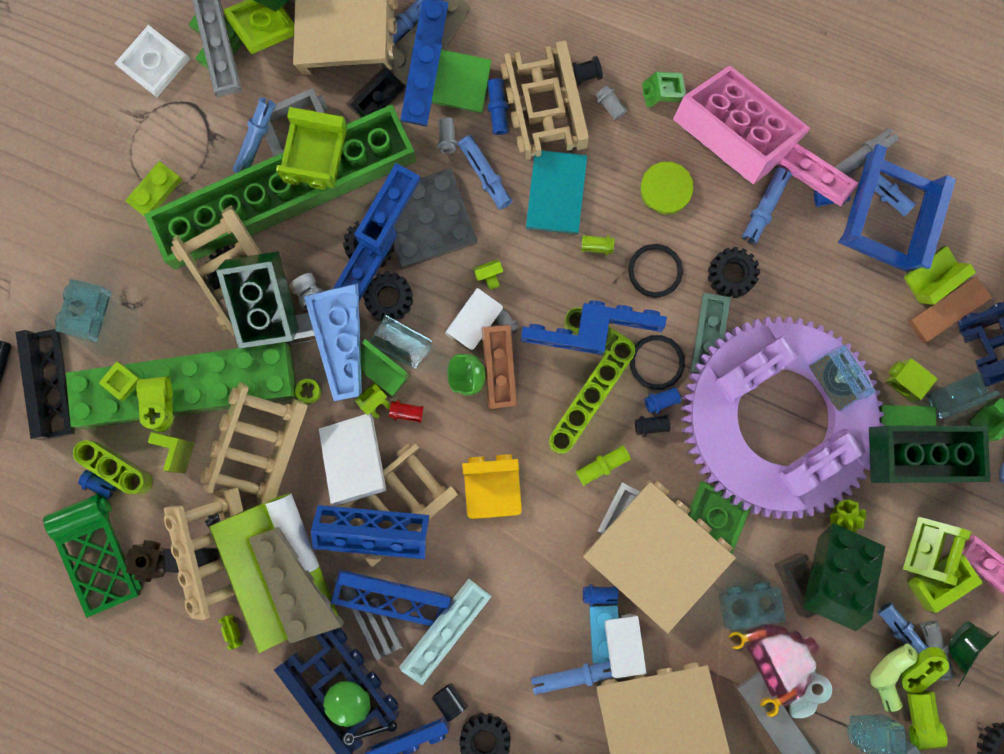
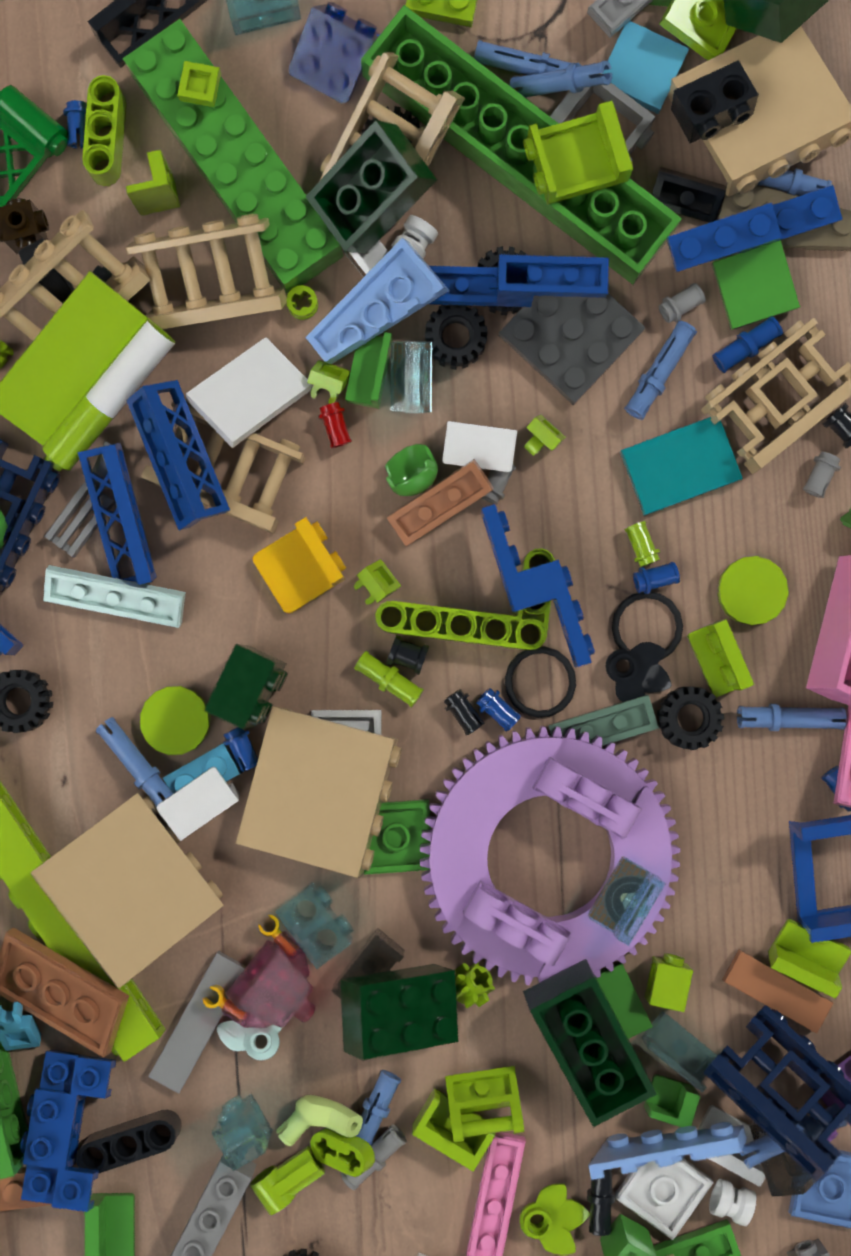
camera: 65 degrees right, 5 degrees up
(147, 280) = (332, 51): none -> clear blue bracket
(154, 398) = (199, 133): lime piece -> none
(223, 159) = (516, 60): none -> medium blue pin
(273, 77) = (645, 65): none -> medium azure tile
(295, 596) = (64, 409): dark tan wing -> none
(321, 43) = (709, 96): none -> black brick
(449, 702) = (40, 640): black beam -> none
(531, 437) = (378, 582): none -> lime tile
(556, 633) = (174, 720): none -> lime tile
(562, 568) = (246, 687): none -> dark green brick
(593, 443) = (407, 654): none -> black bush
(625, 247) = (655, 577): none -> blue pin
(686, 289) = (643, 671): none -> black plate
(703, 231) = (720, 658): none -> lime bracket
(967, 644) = (394, 1188): dark green piece -> none

